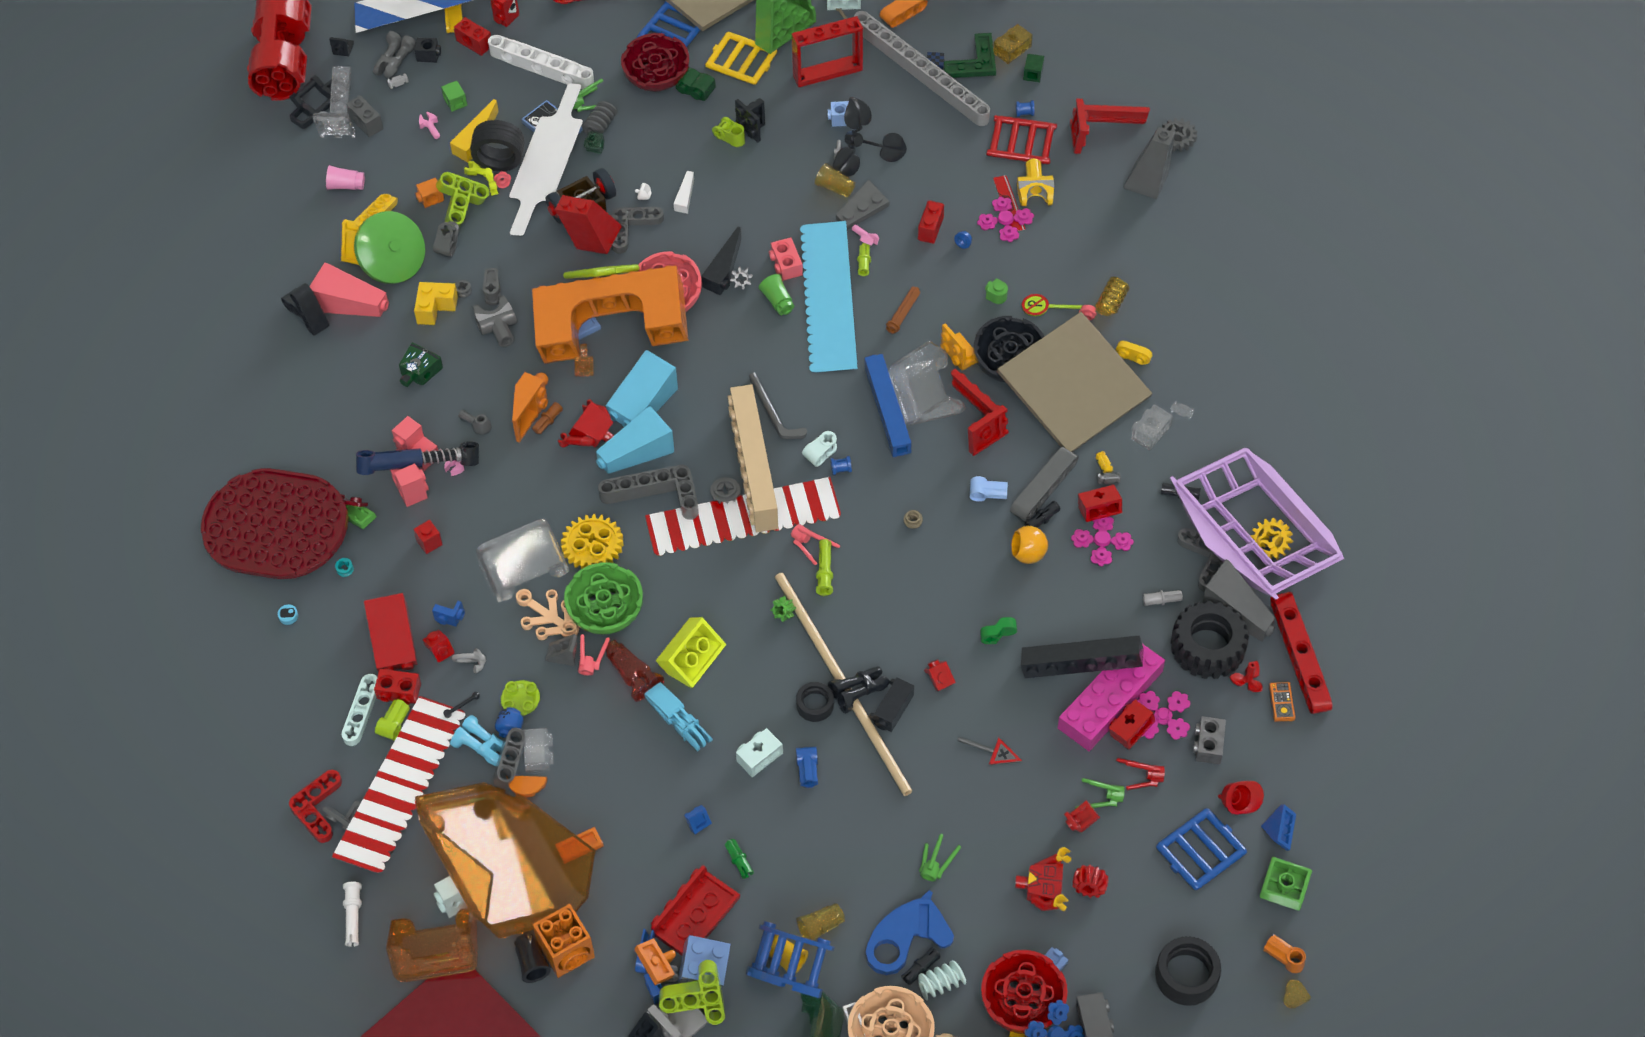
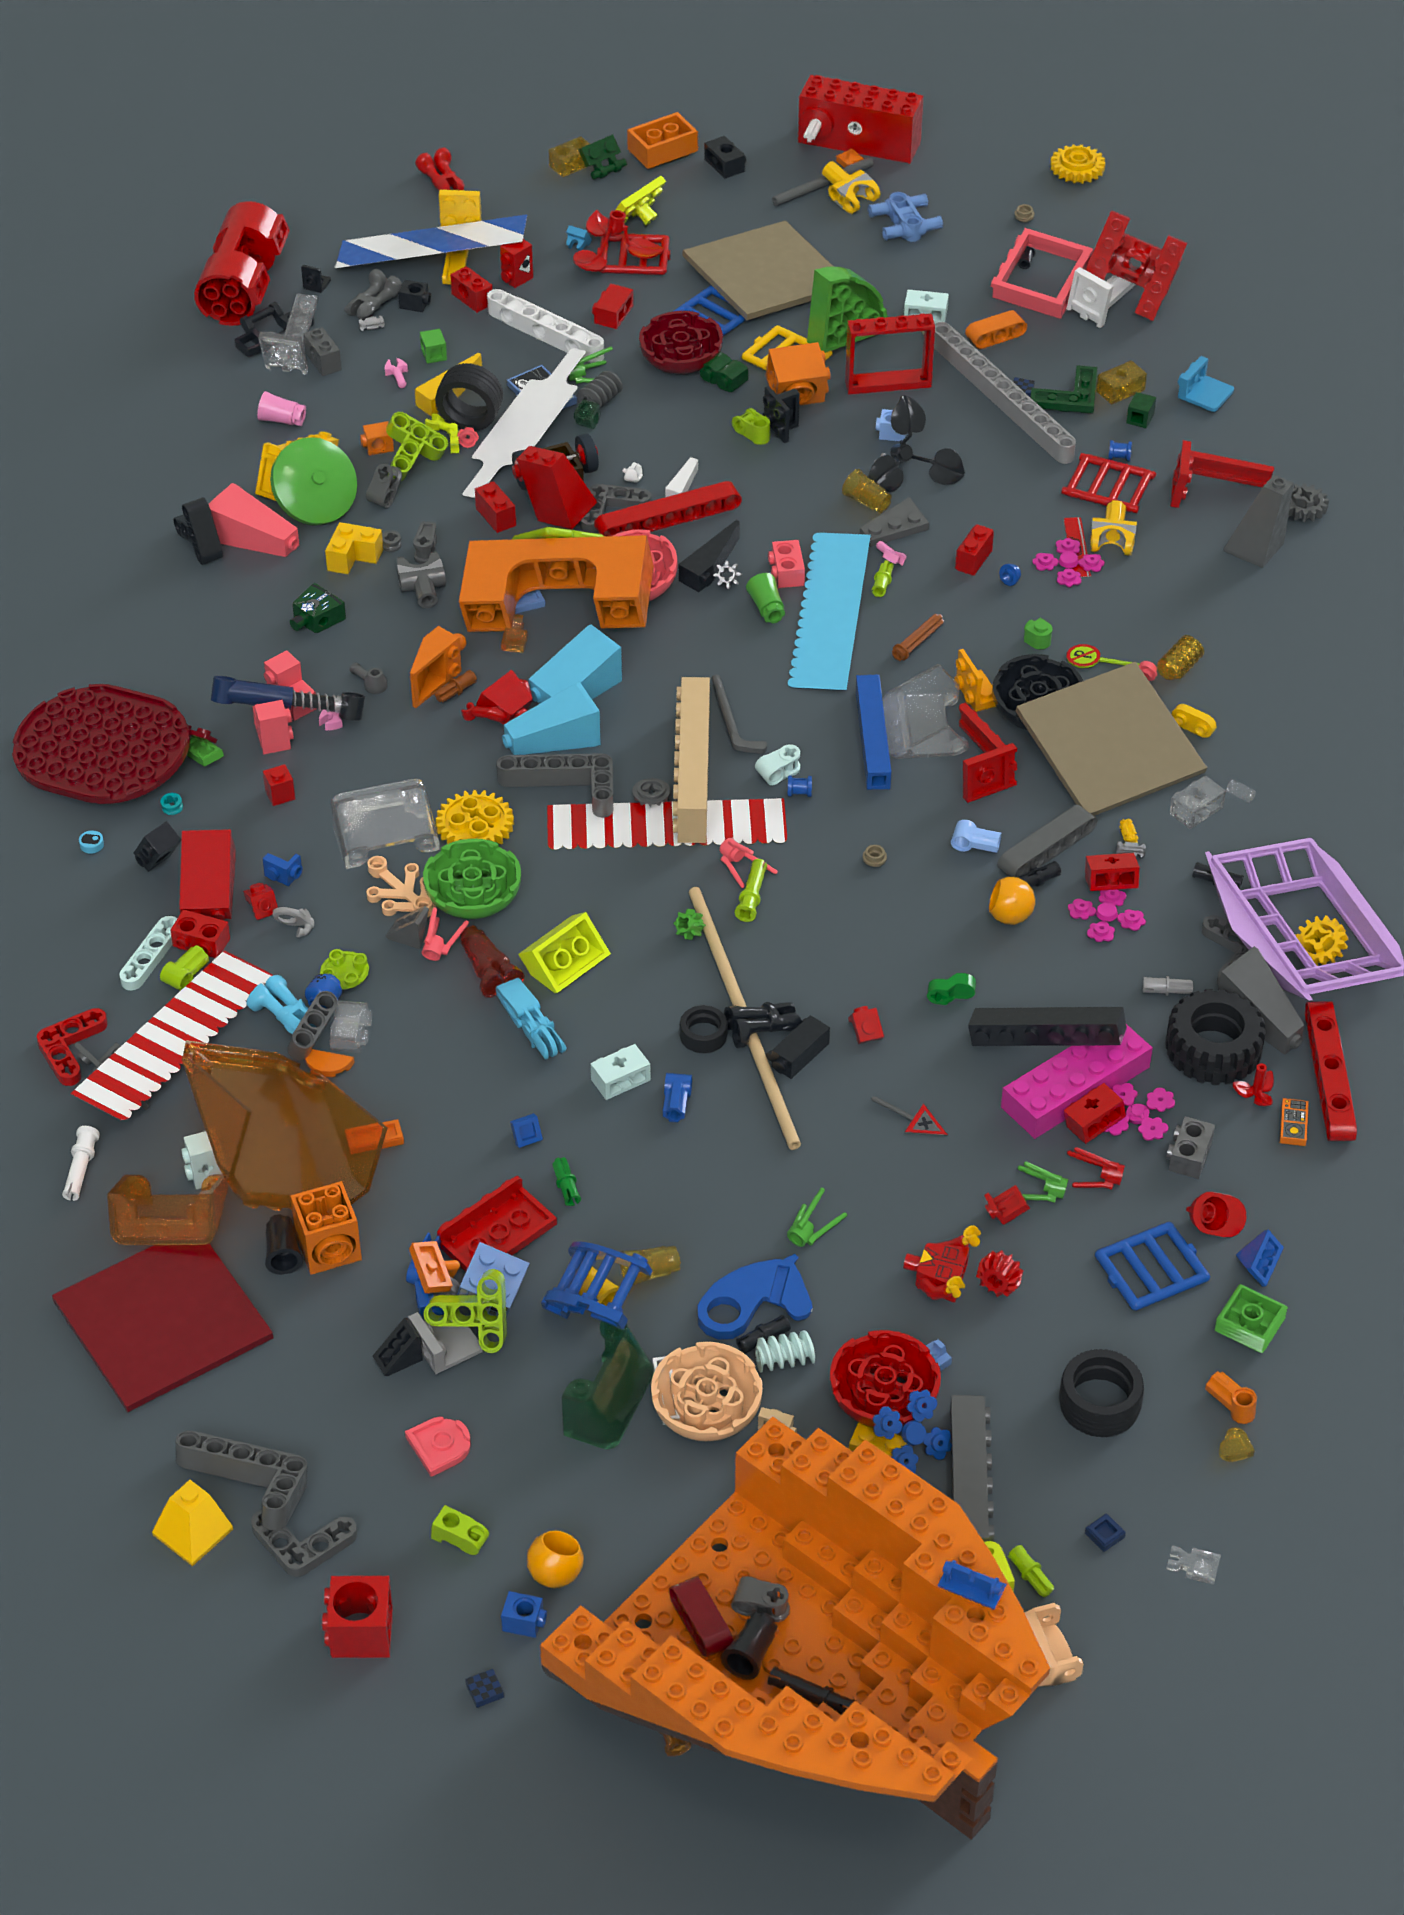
camera: 10 degrees right, 10 degrees down
(344, 614) = (157, 846): none -> black brick
(448, 713) = (253, 972): black hinge -> none
(540, 244) = (495, 507): none -> red brick
(591, 34) = (613, 306): none -> red brick
(680, 225) = (671, 510): none -> red beam
(757, 79) = (801, 369): none -> orange brick
(1077, 39) = (1202, 389): none -> dark azure bracket

